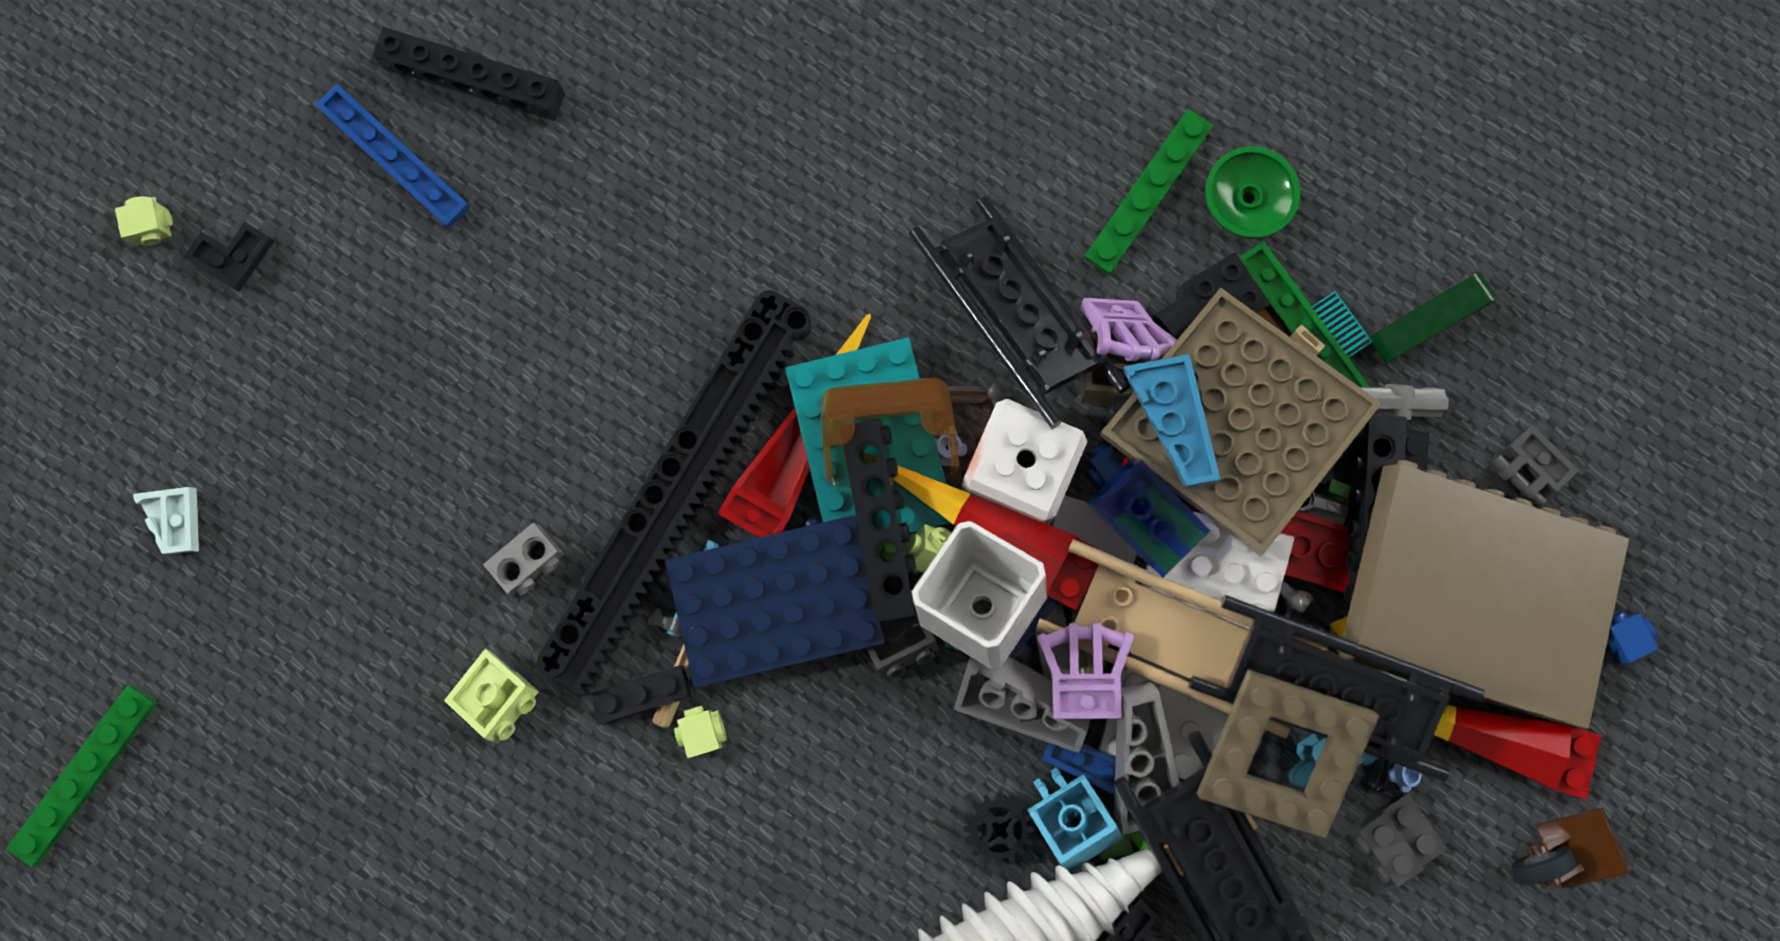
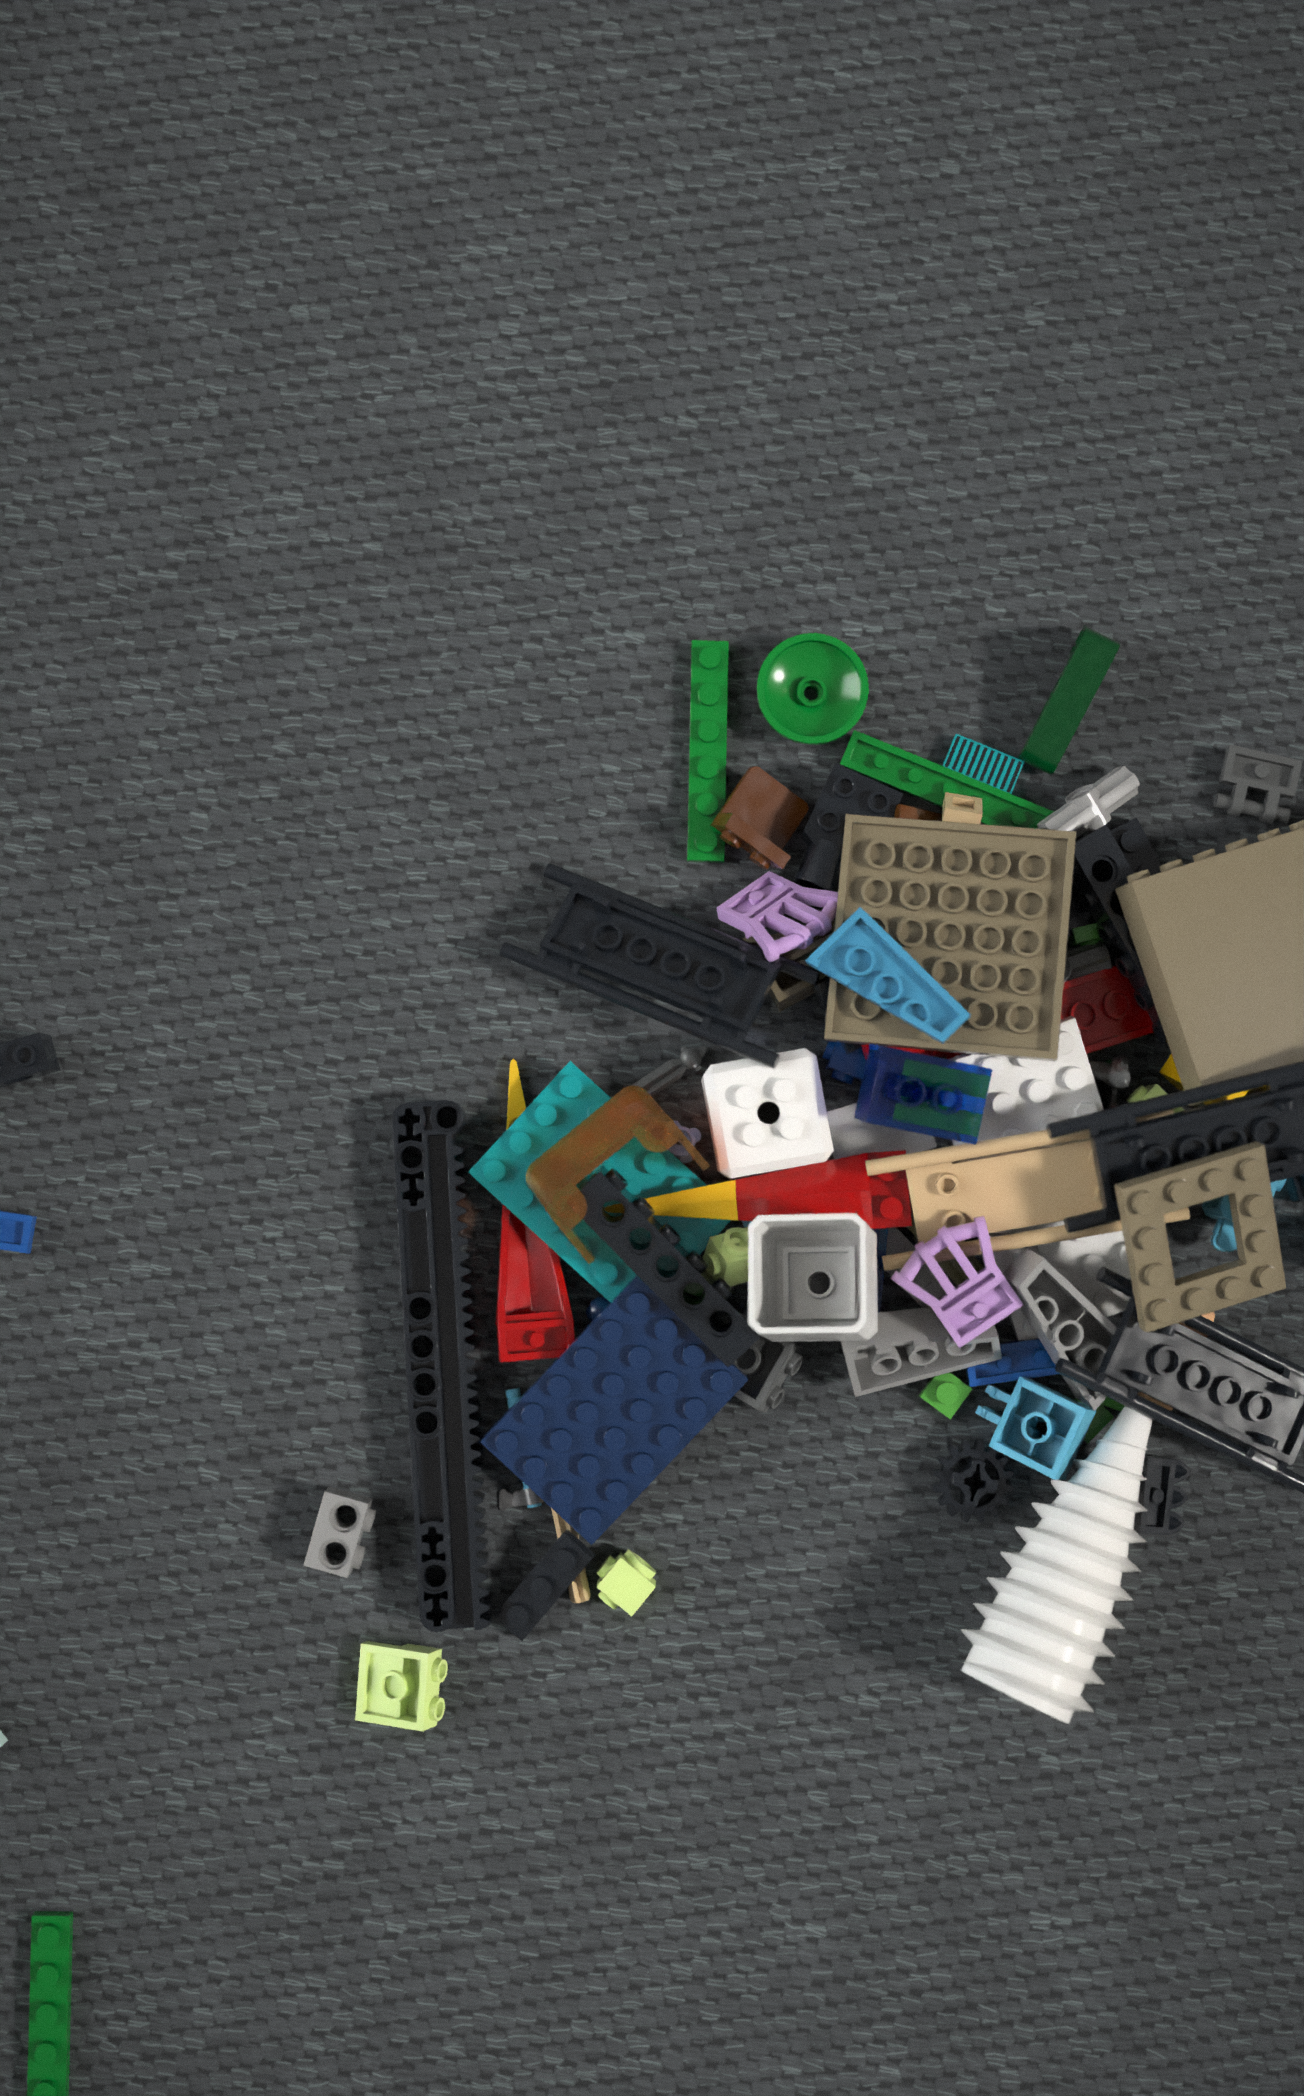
camera: 40 degrees left, 5 degrees up
(1020, 753) = (945, 1393): none -> bright green plate
(1156, 258) = (761, 818): none -> reddish brown bracket

